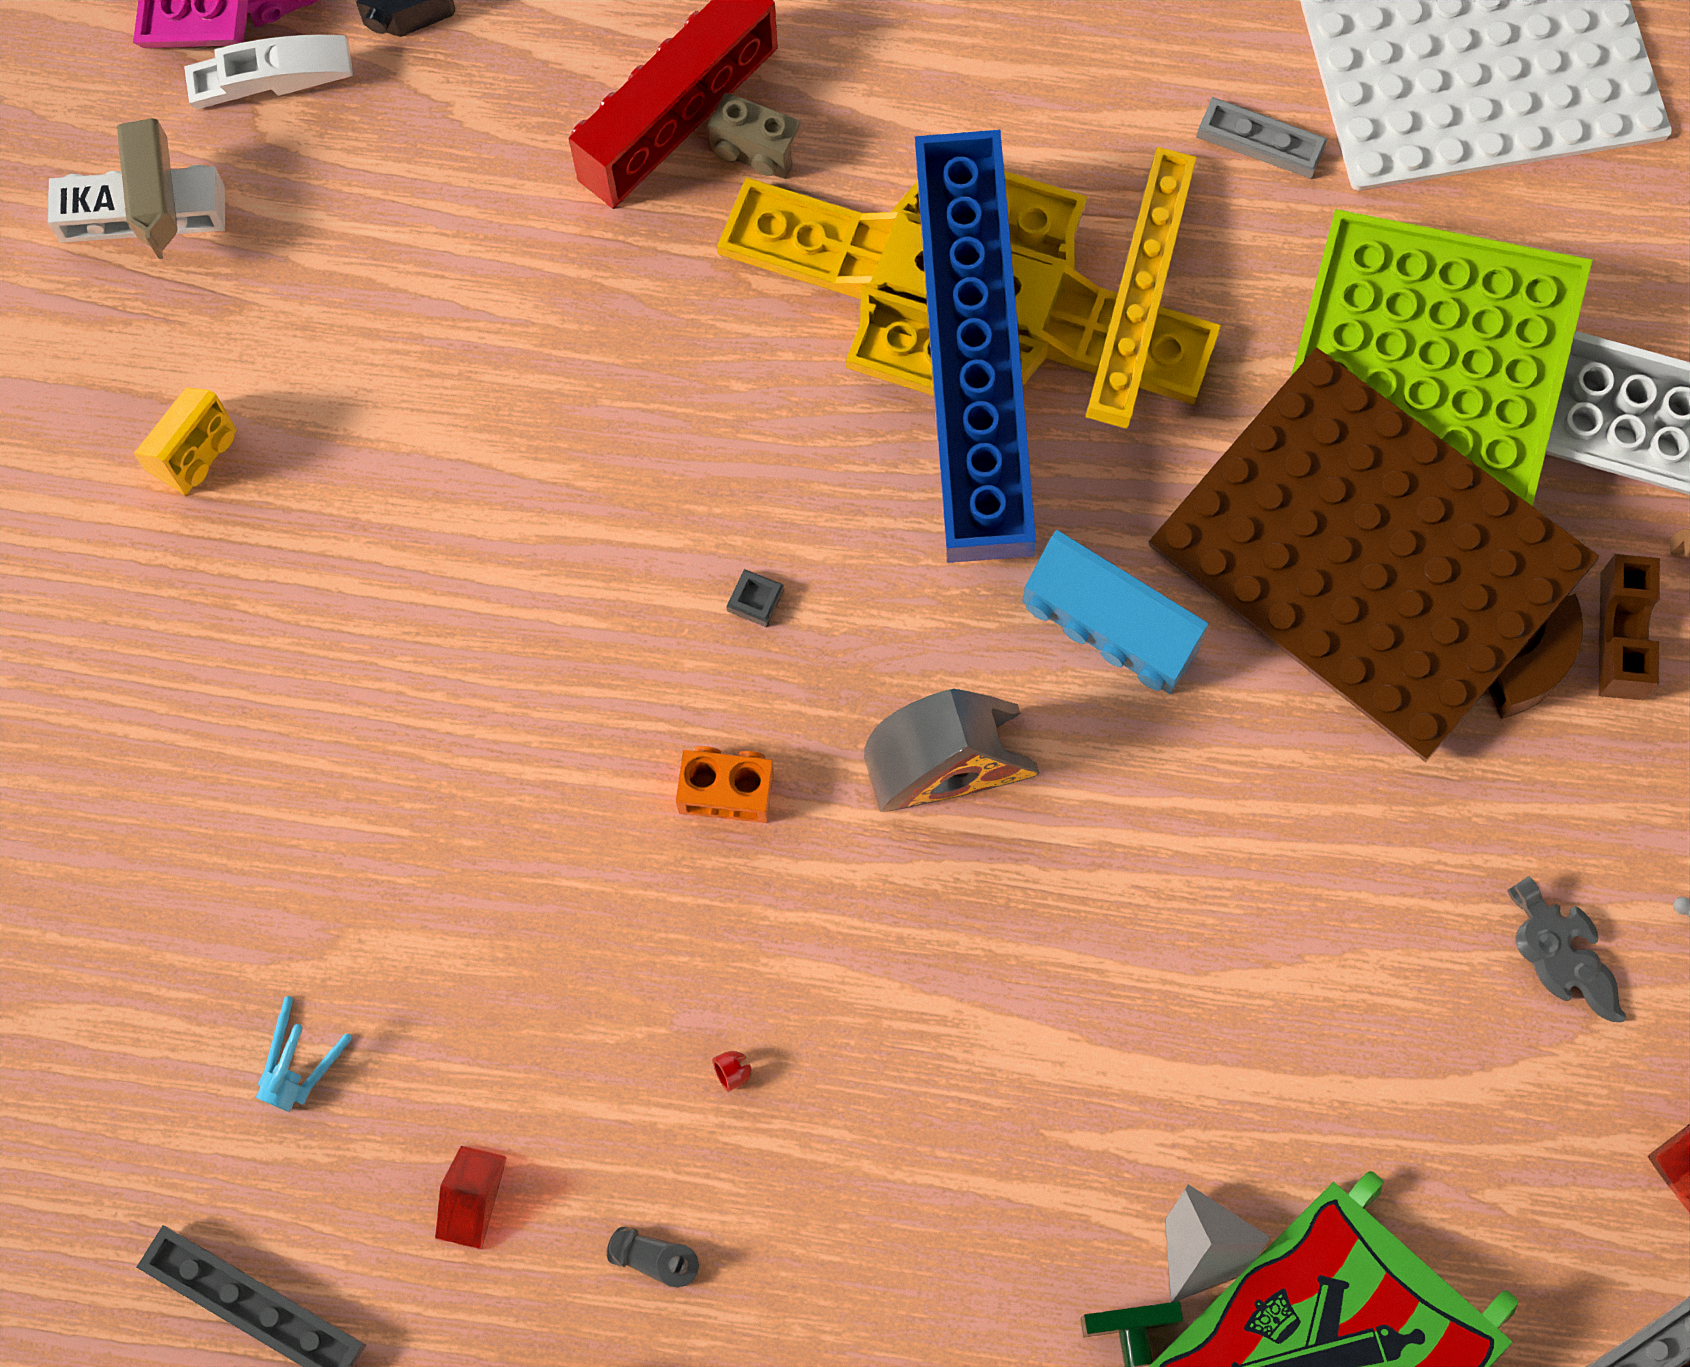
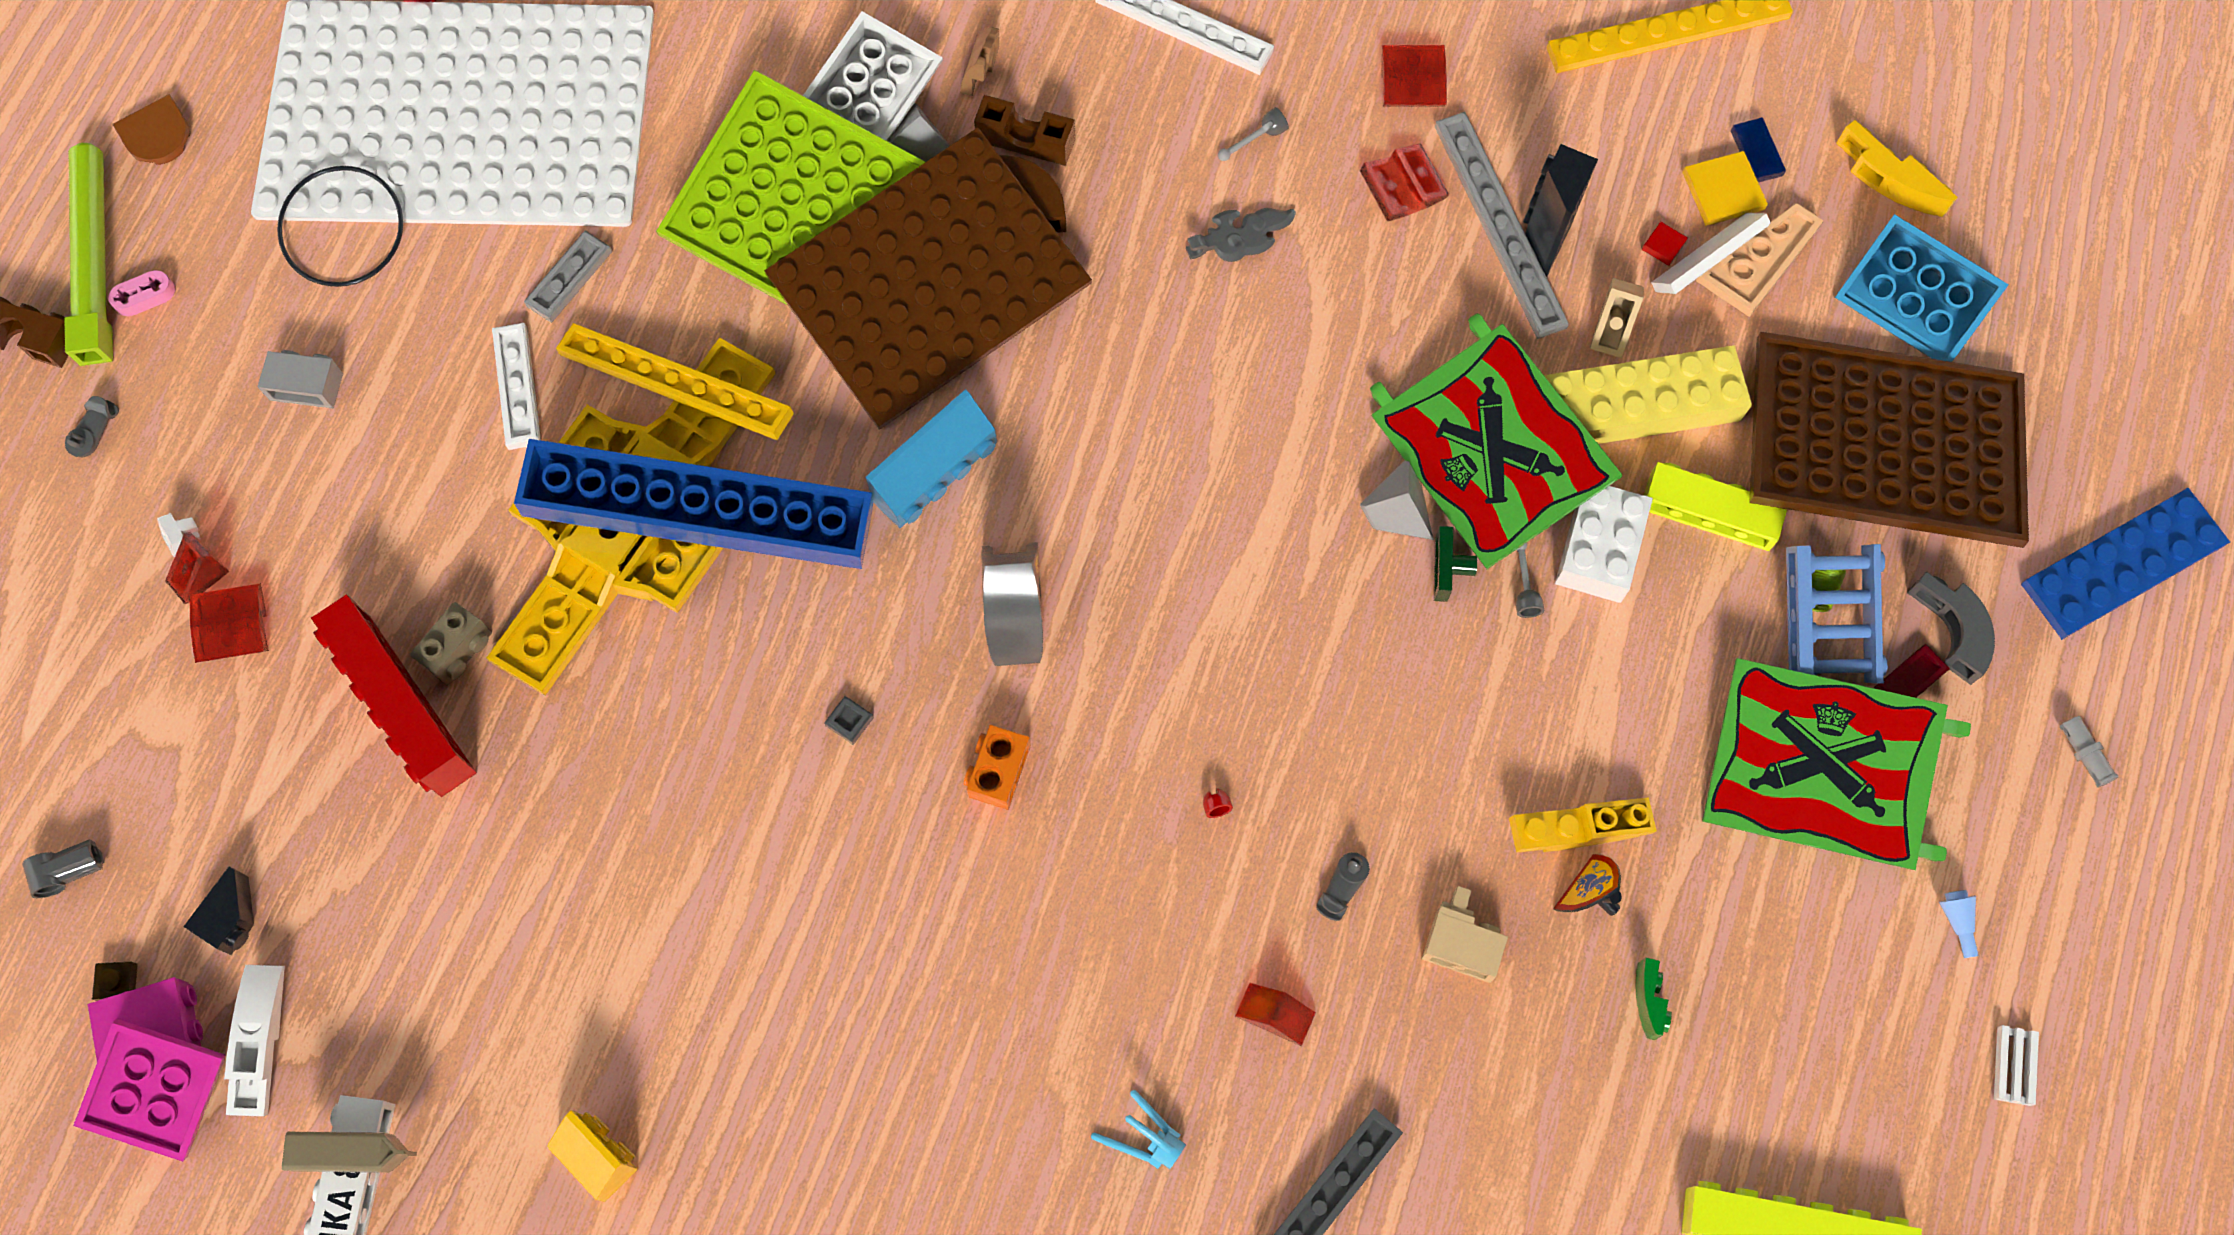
camera: 80 degrees left, 0 degrees up
(1101, 120) = (516, 385): none -> white tile
(1576, 494) = (918, 135): none -> light grey slope

